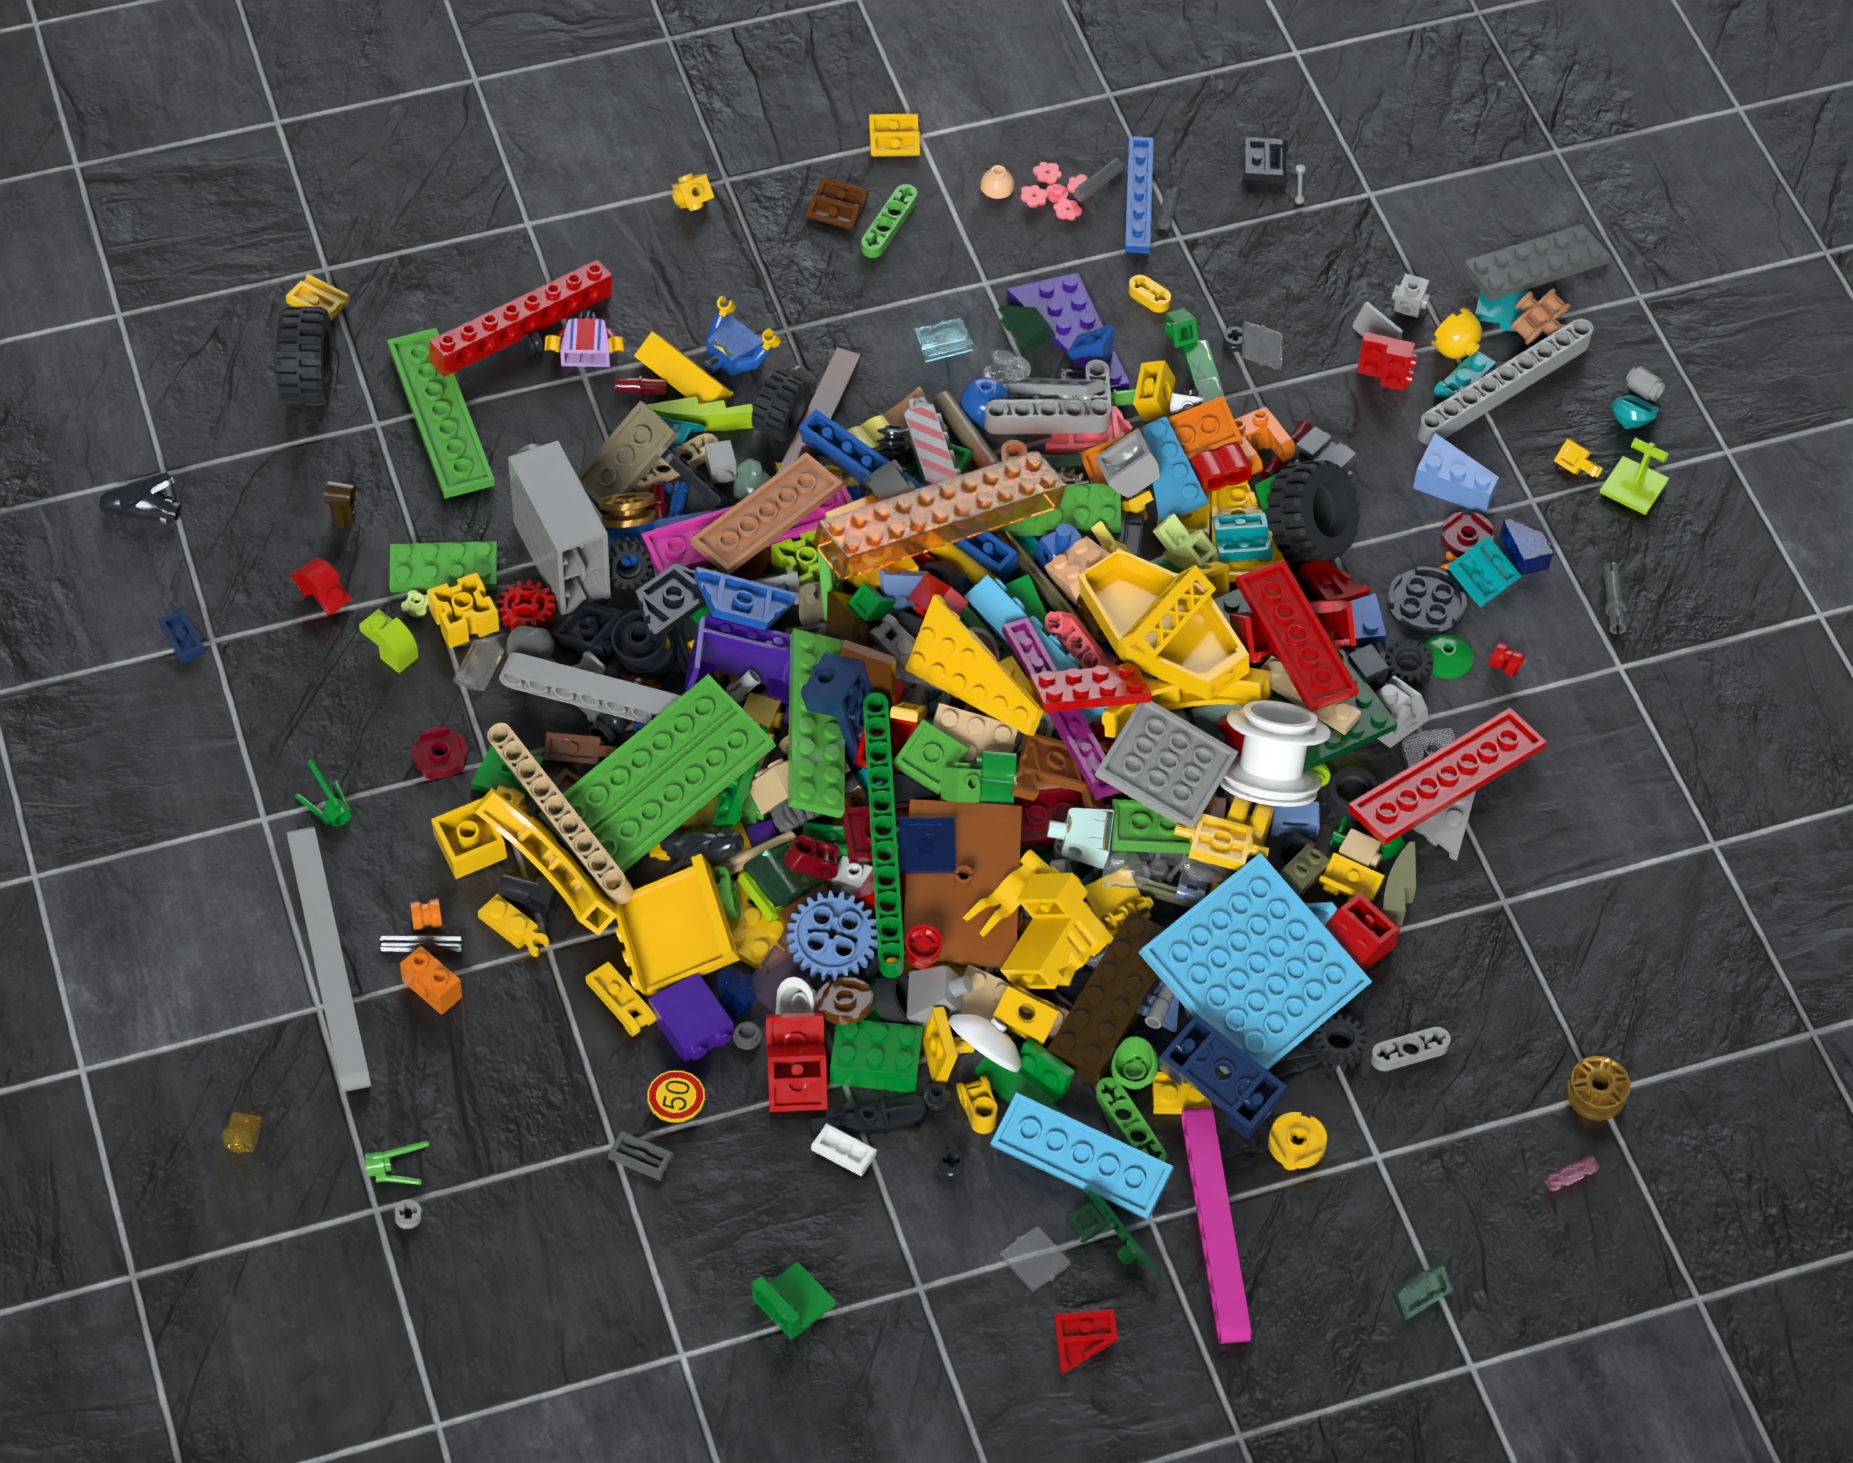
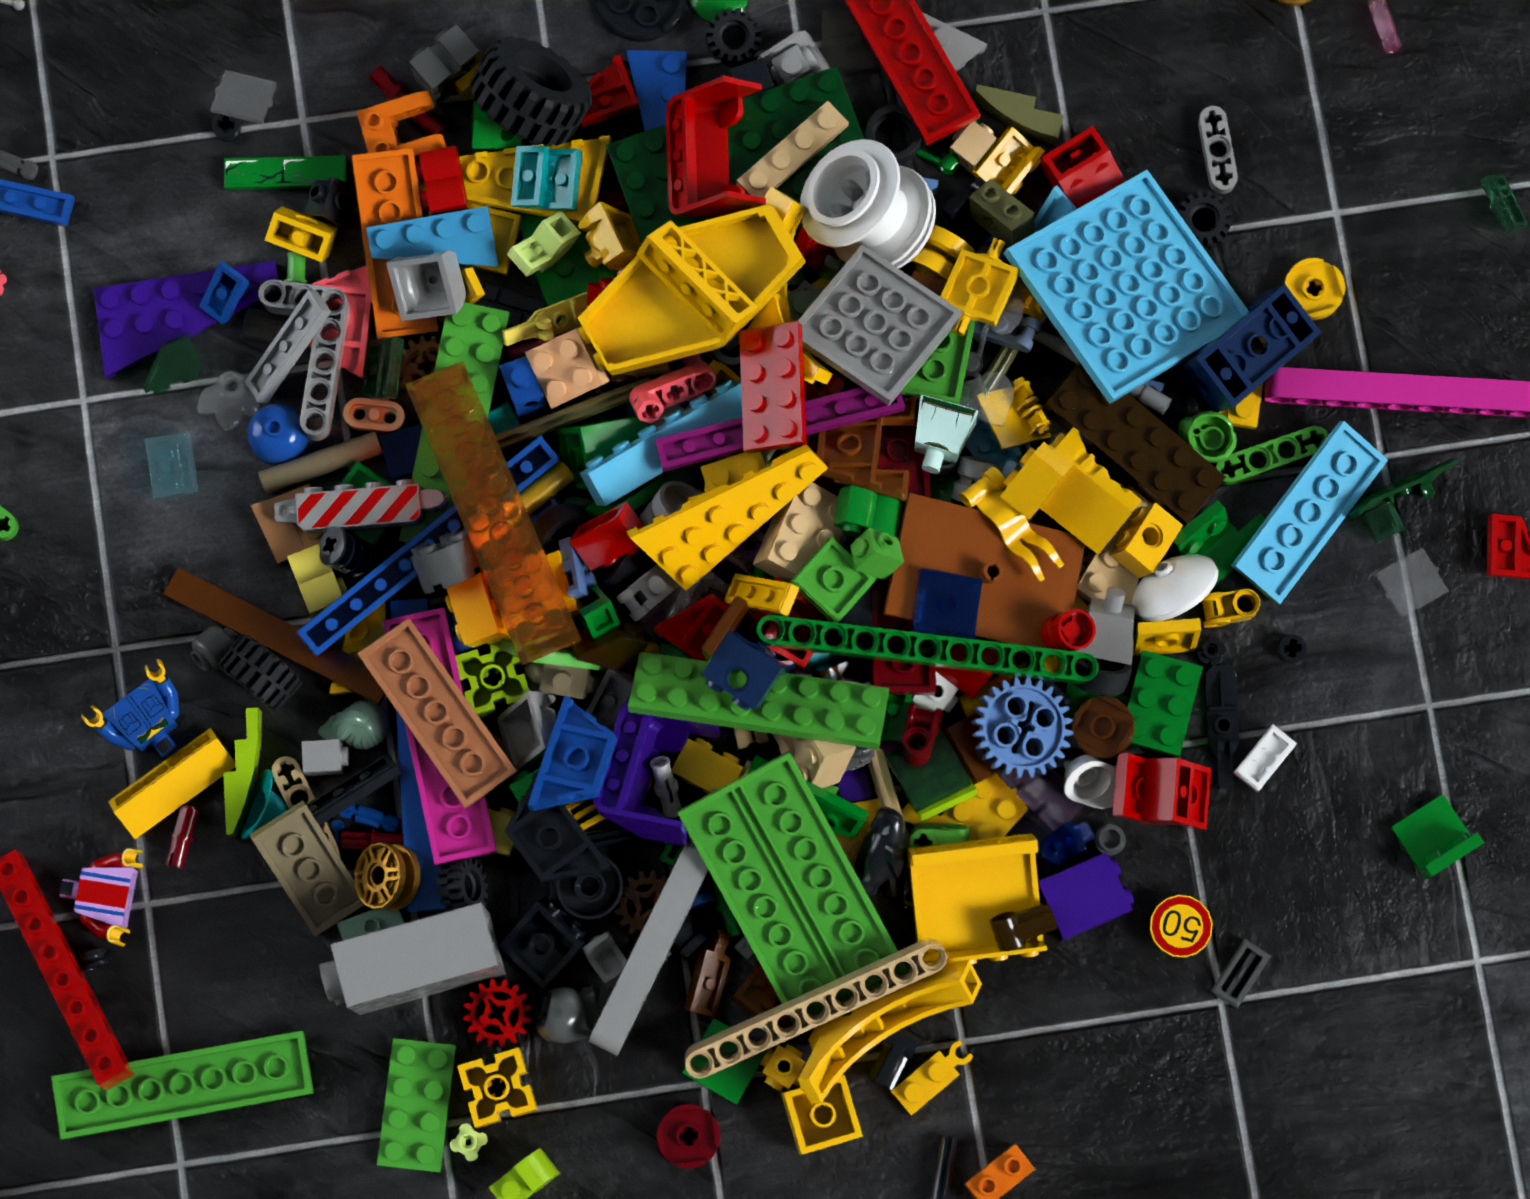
camera: 80 degrees left, 25 degrees up
(426, 914) = (909, 1173): orange wheel -> none
(479, 664) = (565, 1078): clear slope -> none
(620, 998) = (1045, 971): yellow plate -> none
(653, 960) = (1015, 928): none -> dark brown piece
(1149, 294) = (134, 205): yellow beam -> none
(1177, 328) = (207, 184): green brick -> none
(1297, 636) = (732, 146): red plate -> none

